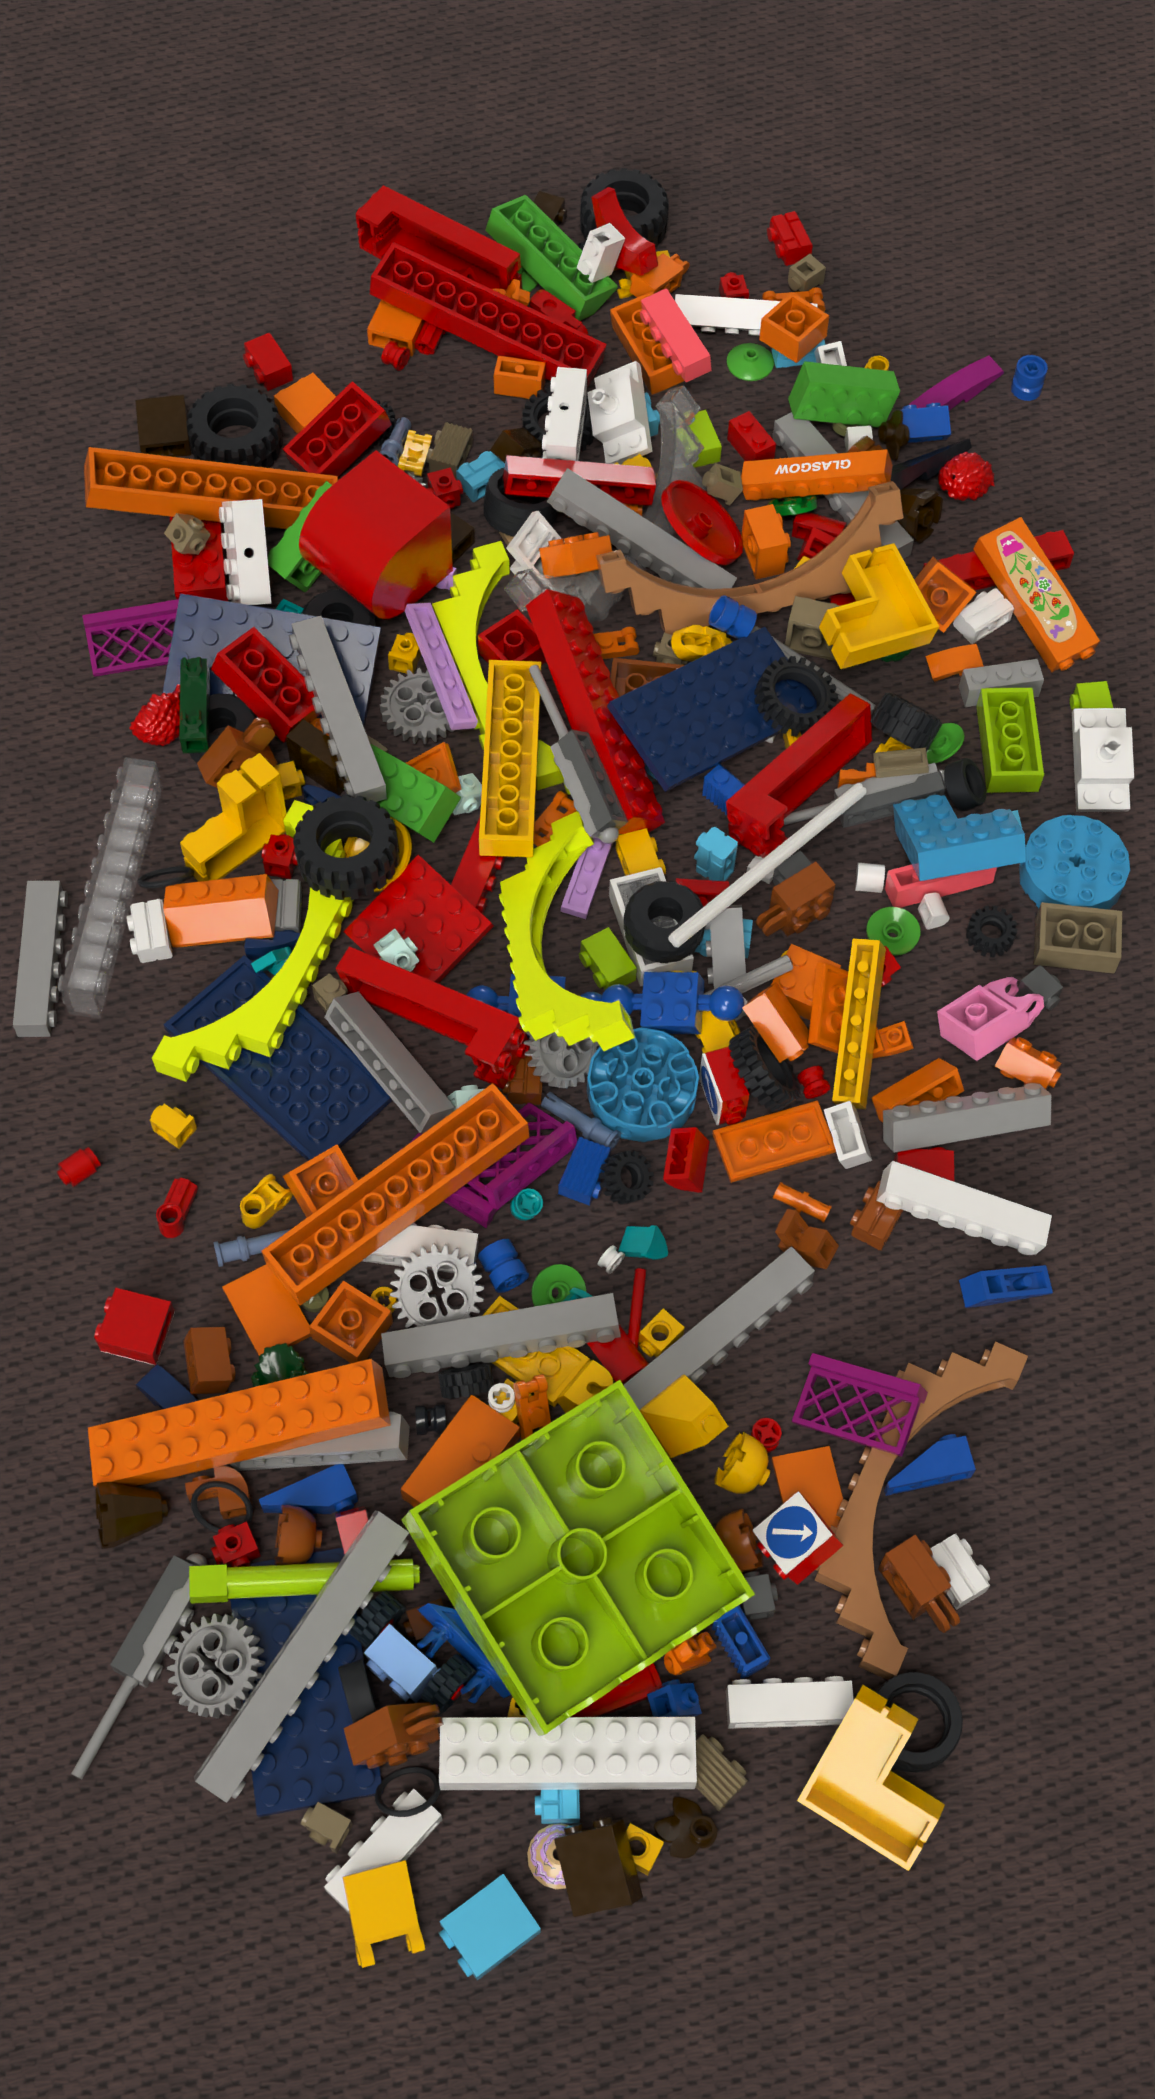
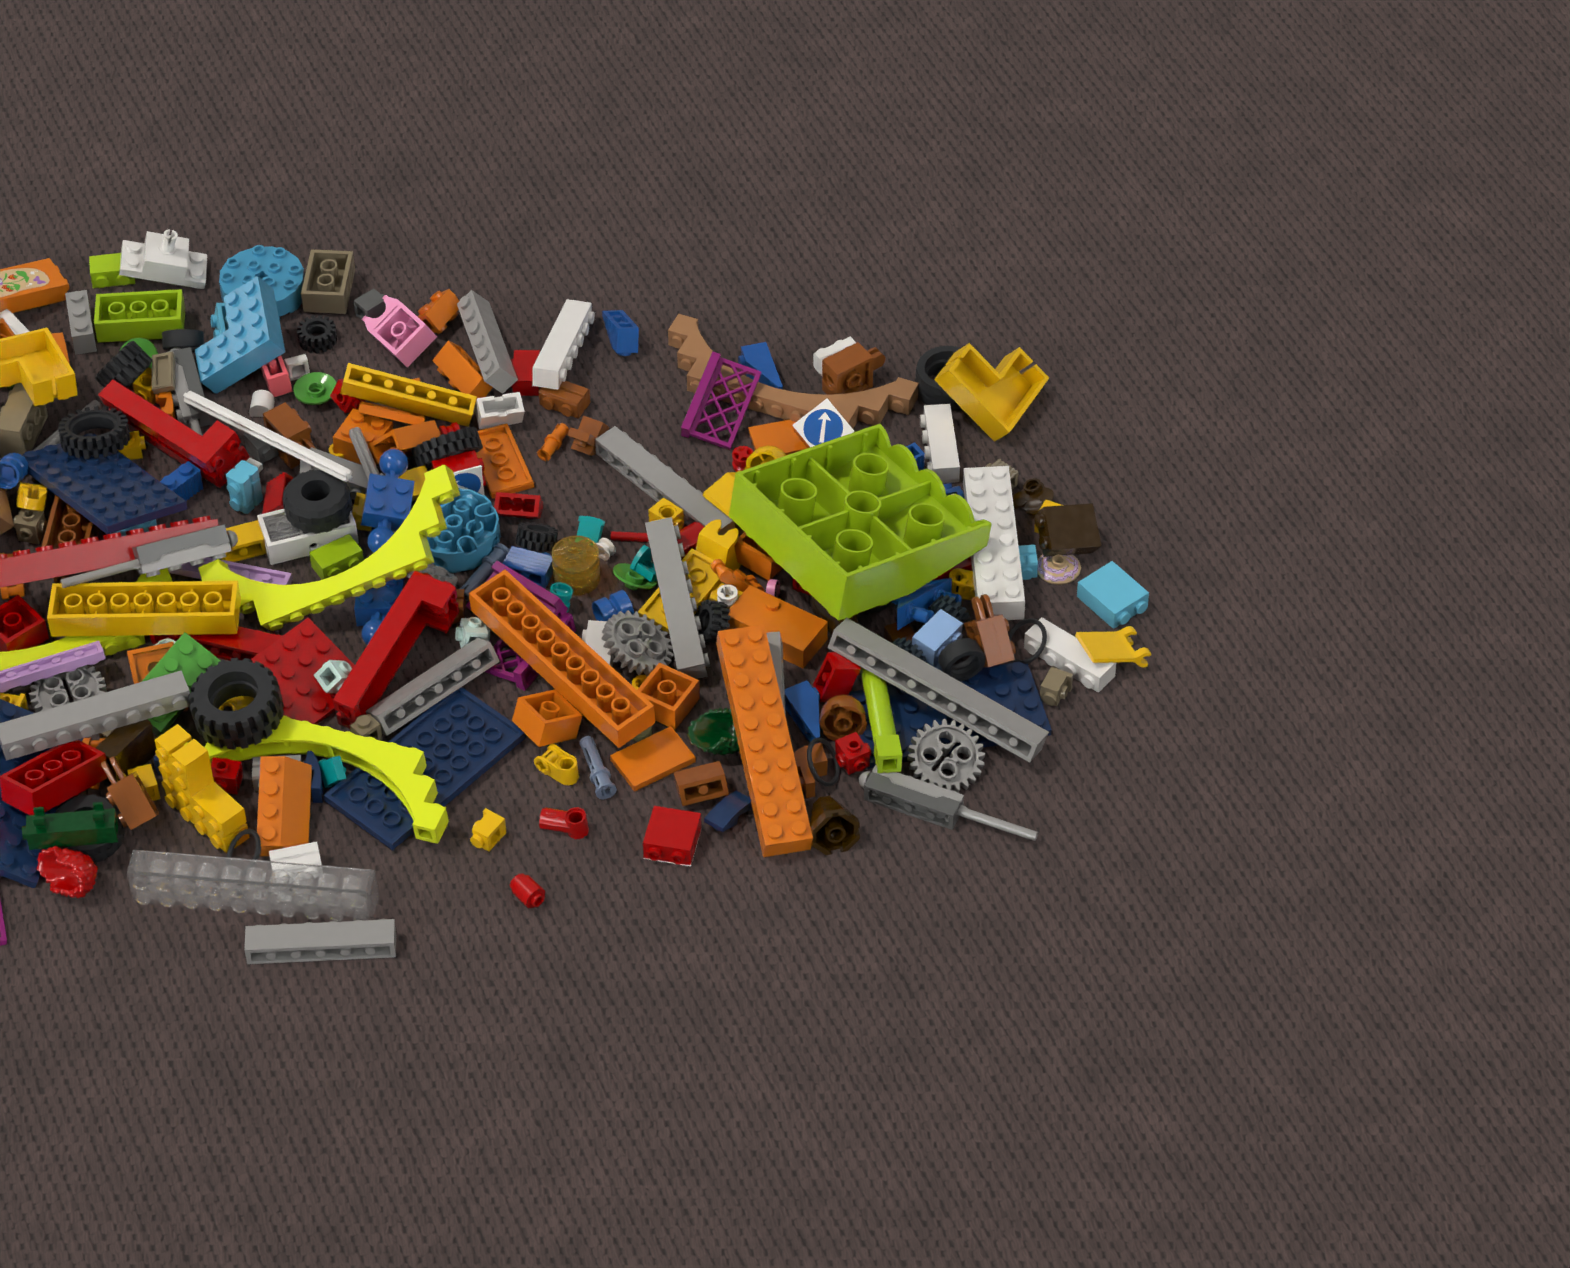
camera: 90 degrees left, 15 degrees down
(573, 1236) = (577, 564): none -> clear yellow wheel

